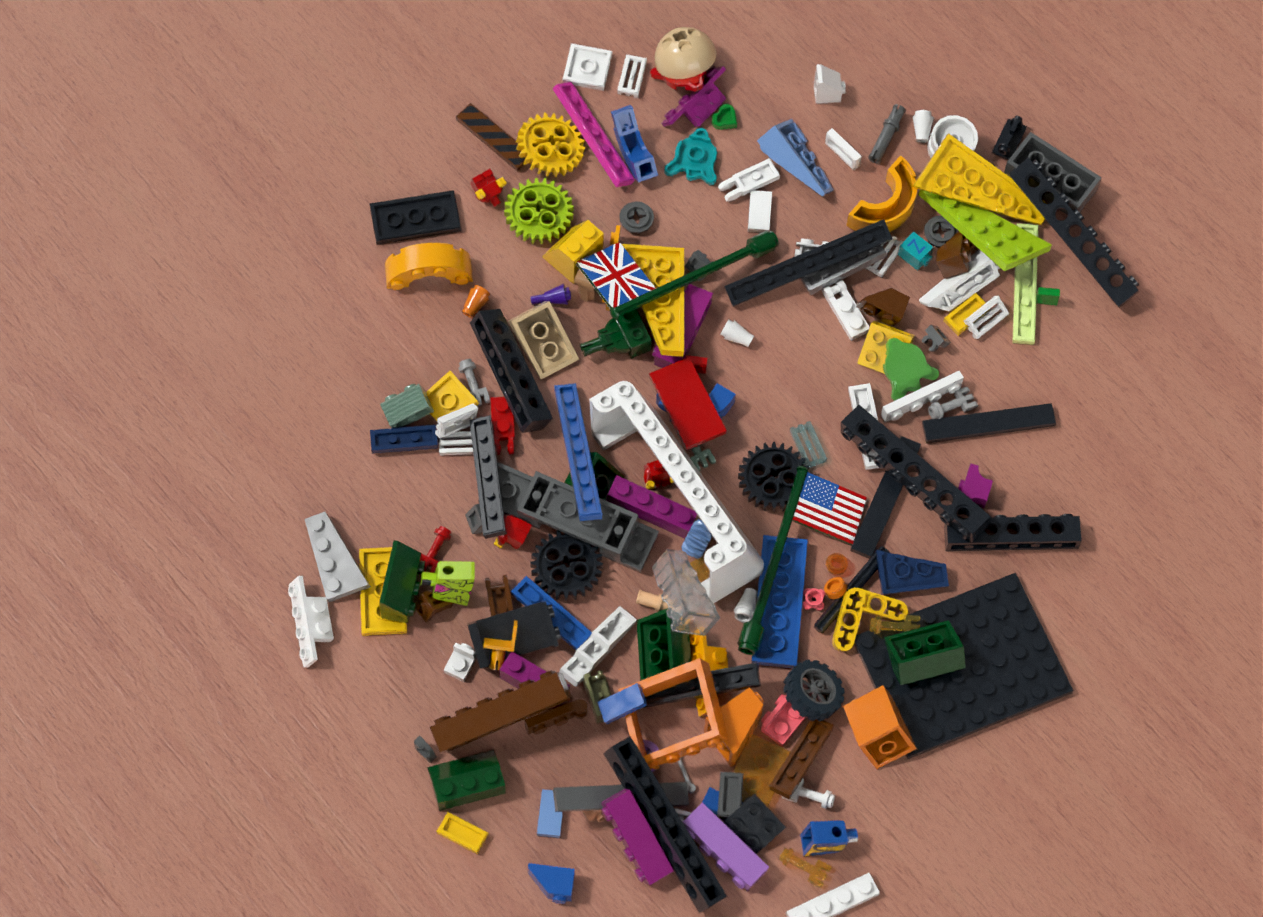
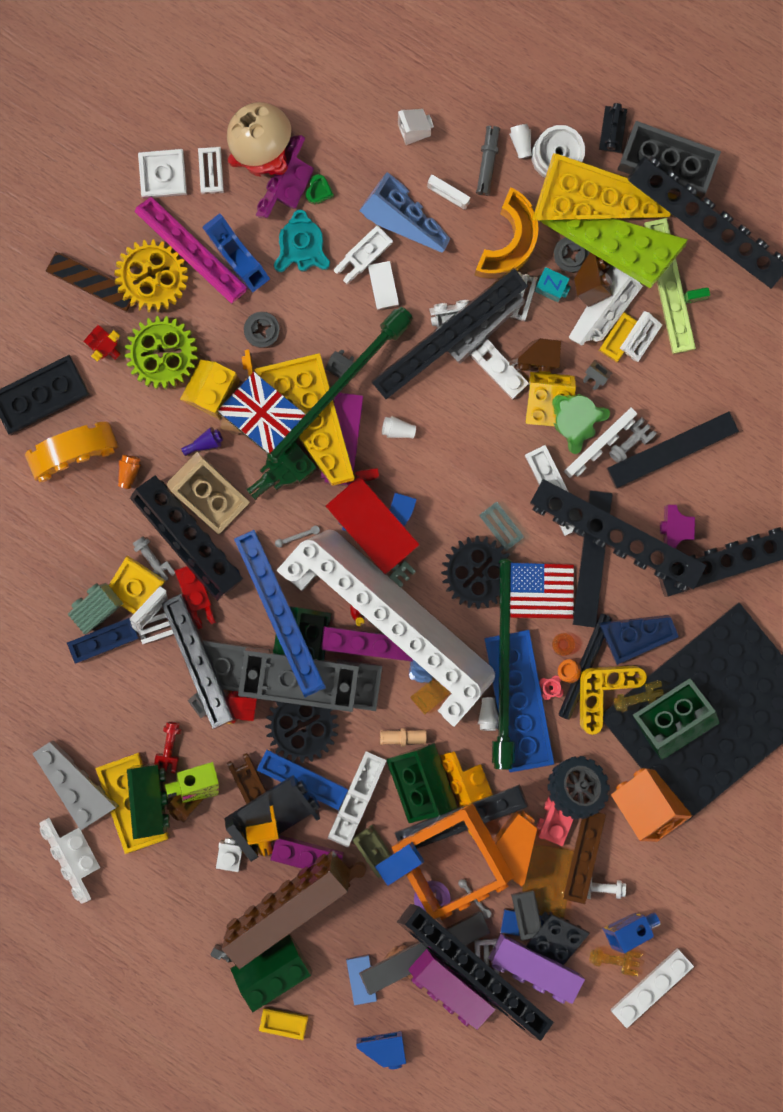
camera: 15 degrees left, 20 degrees up
(684, 594) = (427, 732): clear wedge -> none

